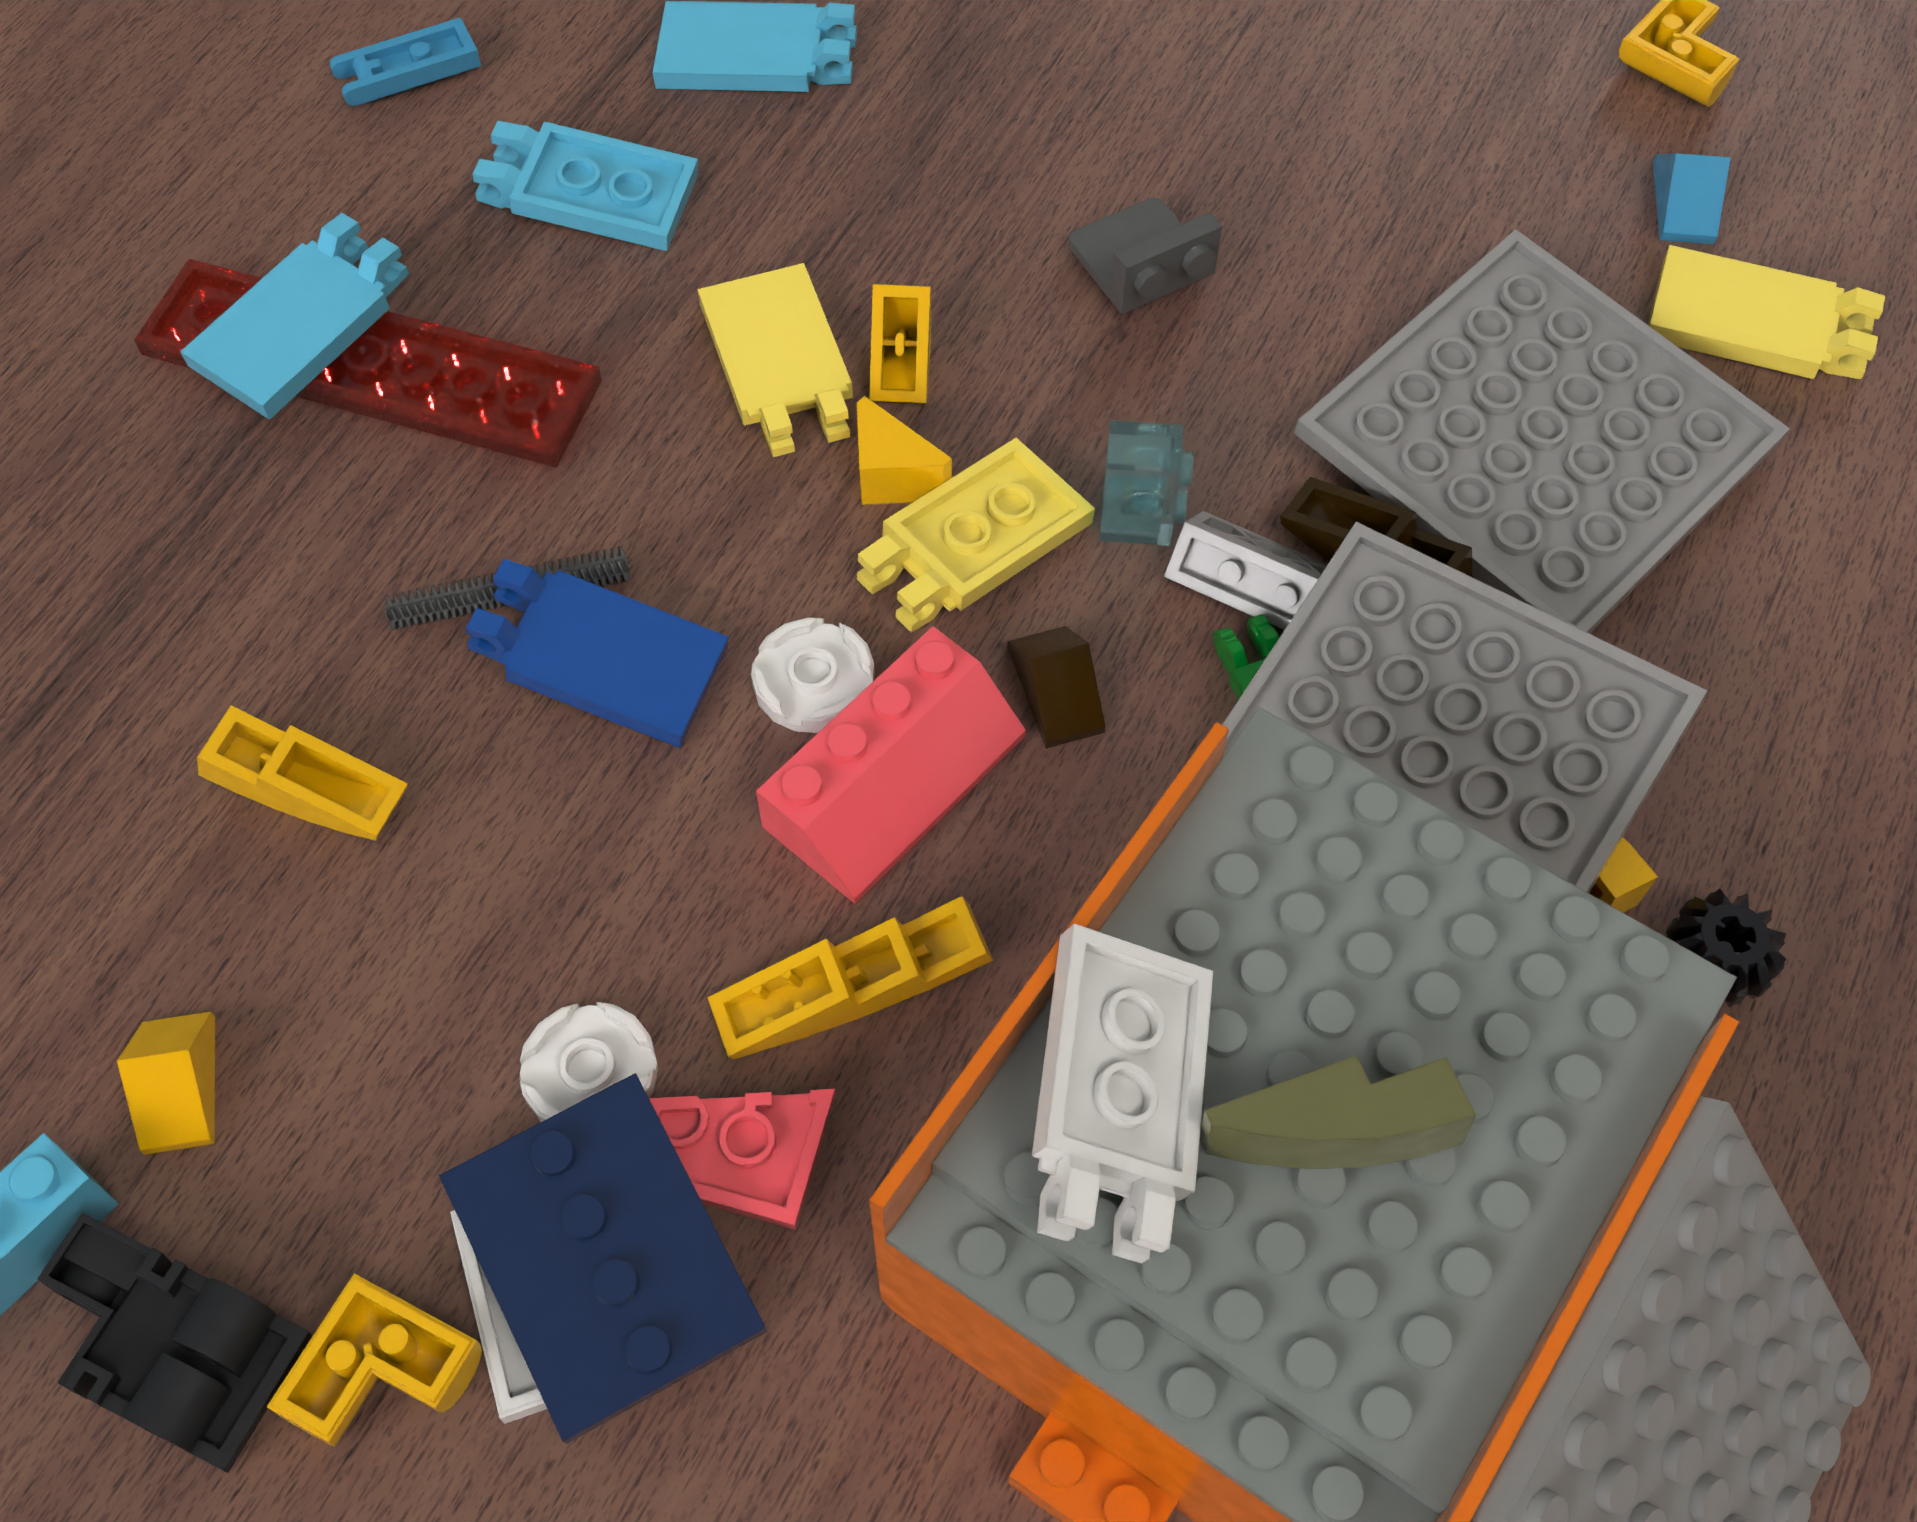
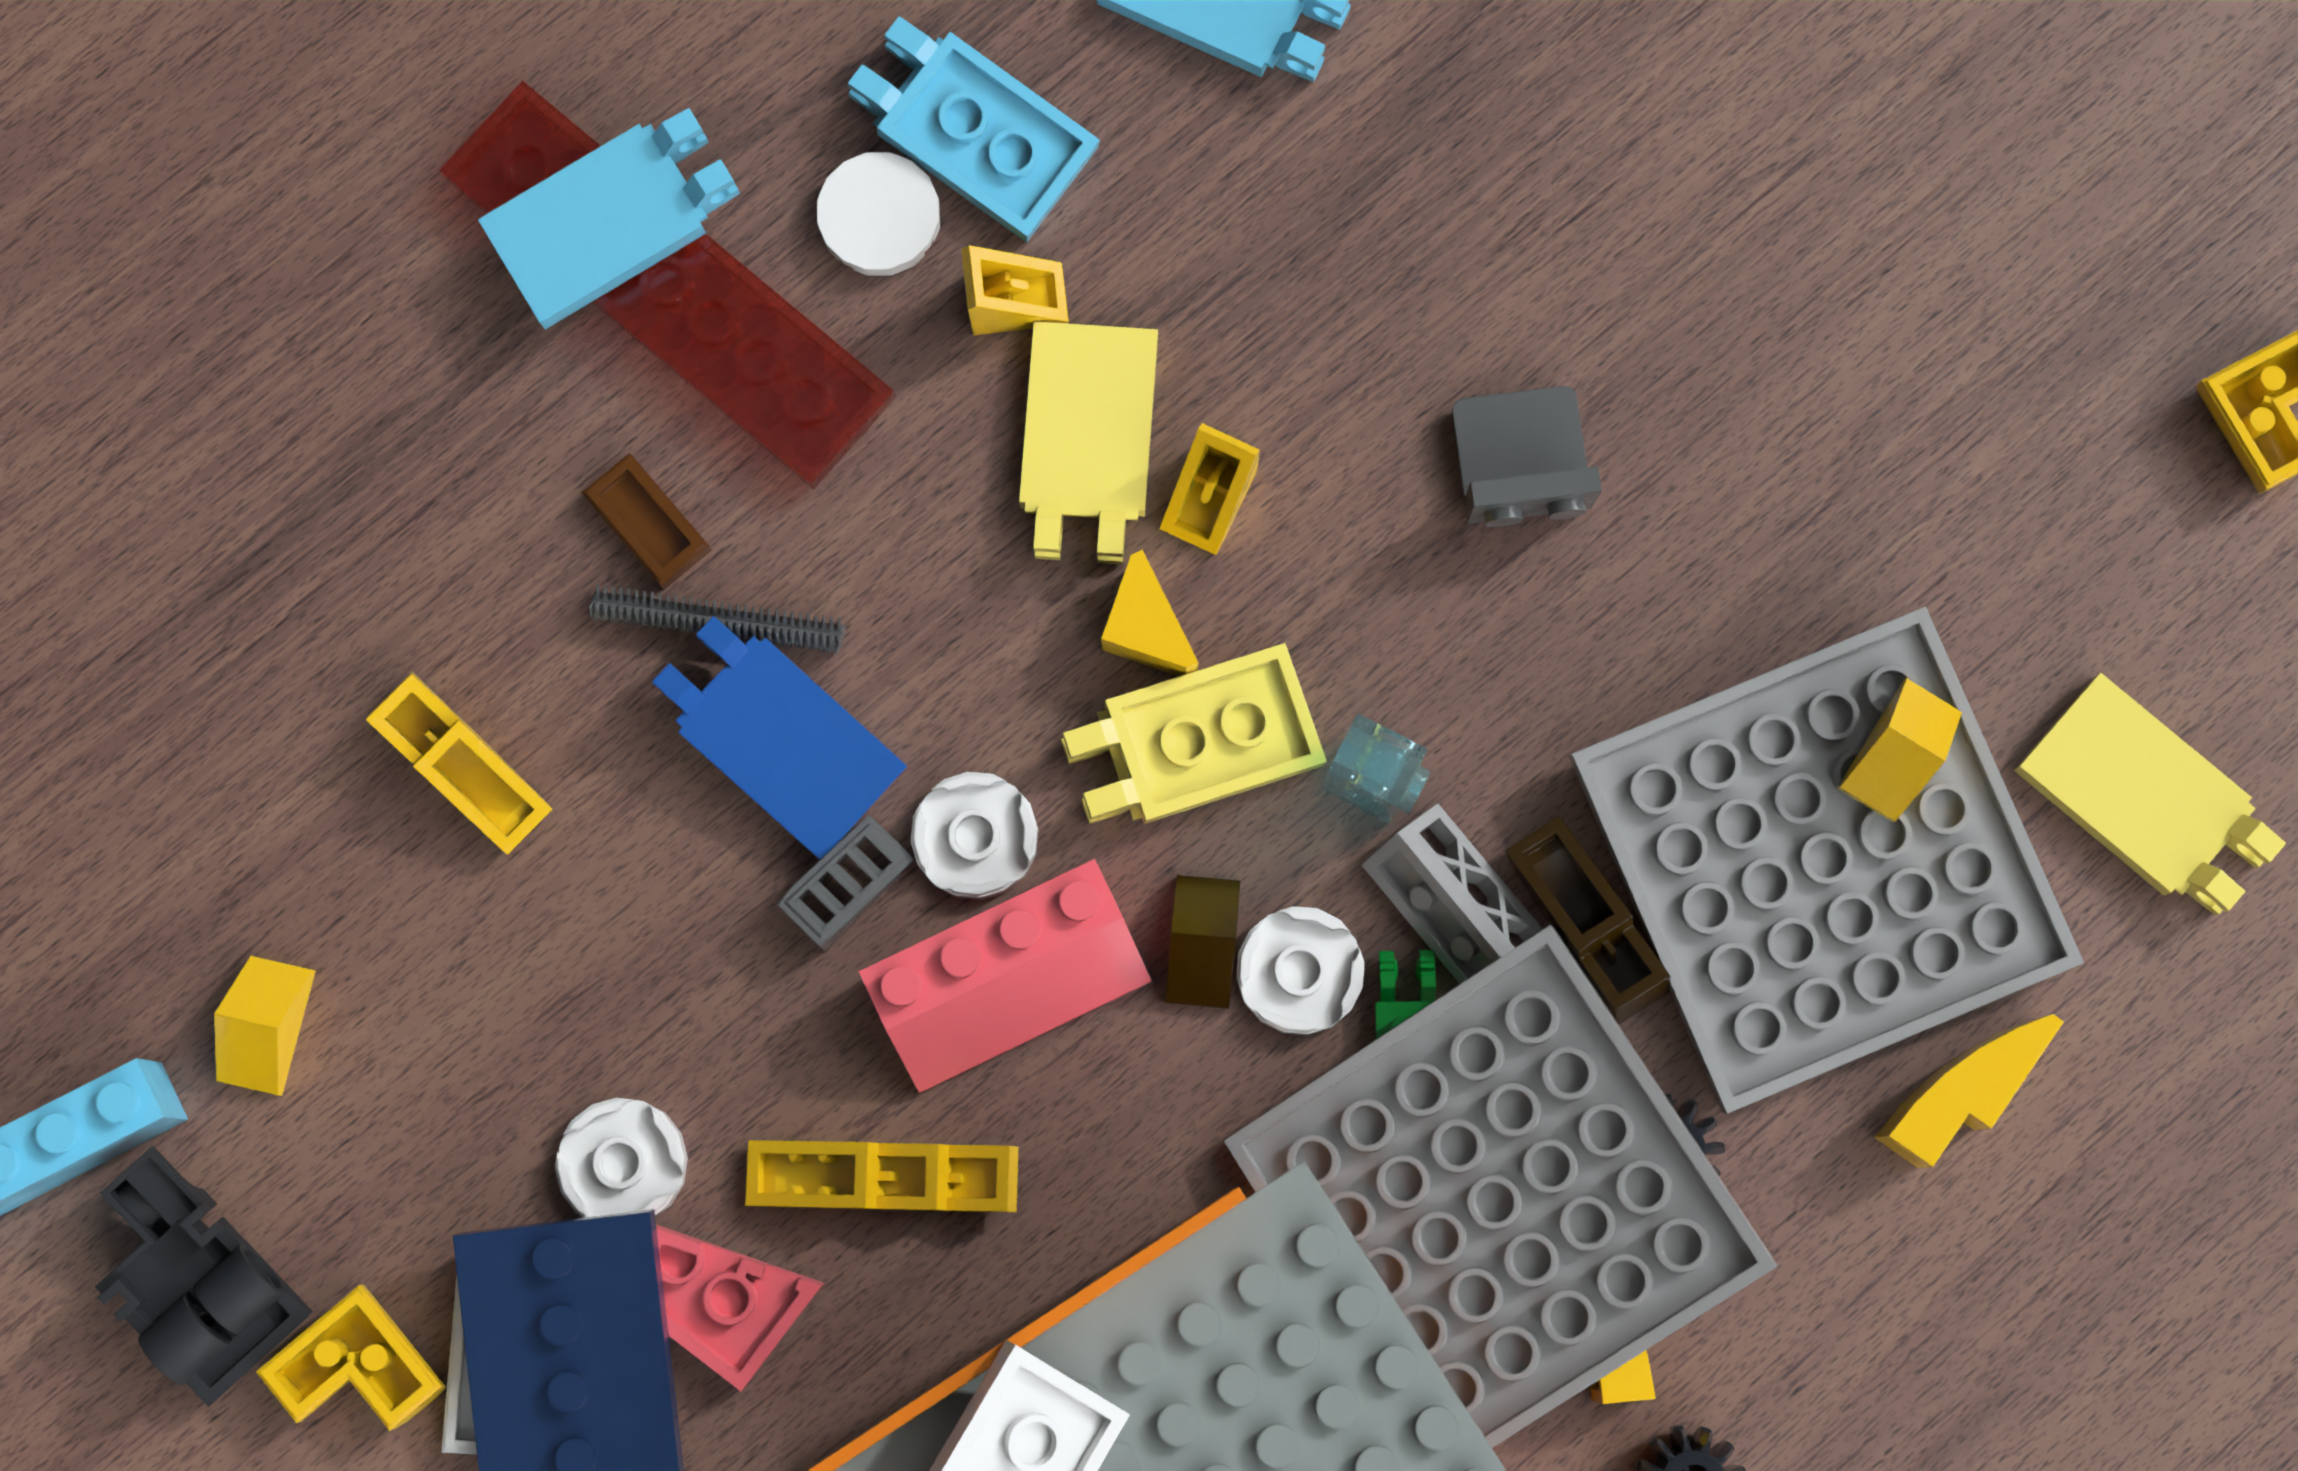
camera: 25 degrees right, 20 degrees up
(414, 539) = (646, 521): none -> reddish brown tile
(534, 264) = (878, 213): none -> white tile
(662, 273) = (1011, 290): none -> yellow slope
(708, 794) = (830, 865): none -> dark grey slope
(1153, 676) = (1300, 971): none -> white tile
(1560, 327) = (1902, 751): none -> yellow slope
(1689, 196) = (2165, 609): dark azure slope -> none
(1759, 559) = (1967, 1090): none -> yellow slope

